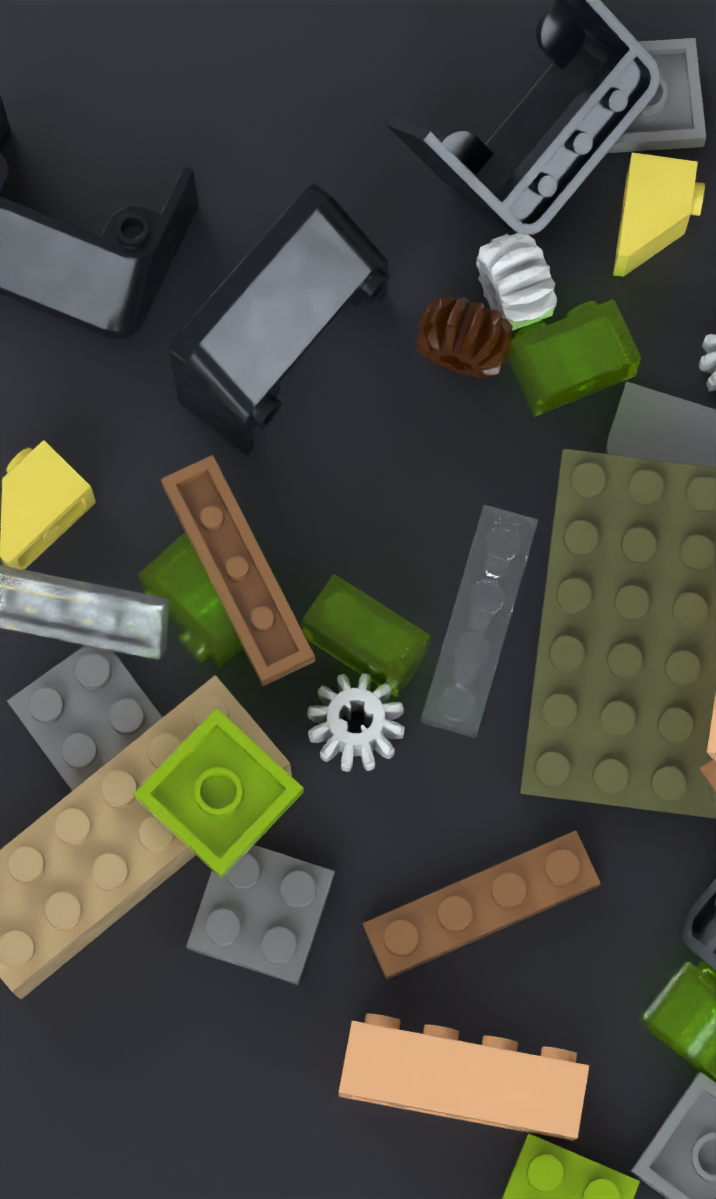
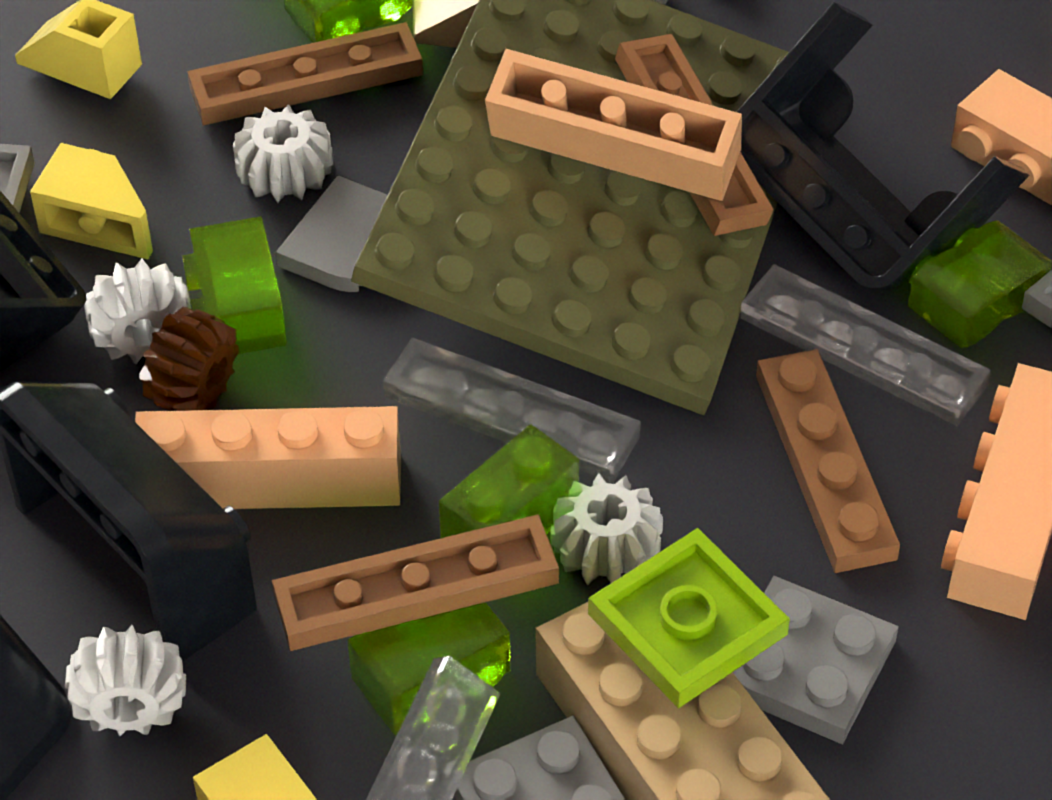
camera: 80 degrees left, 25 degrees down
(131, 368) = (125, 681): none -> white gear
(380, 428) = (285, 454): none -> light nougat brick
(614, 926) = (866, 344): none -> clear plate

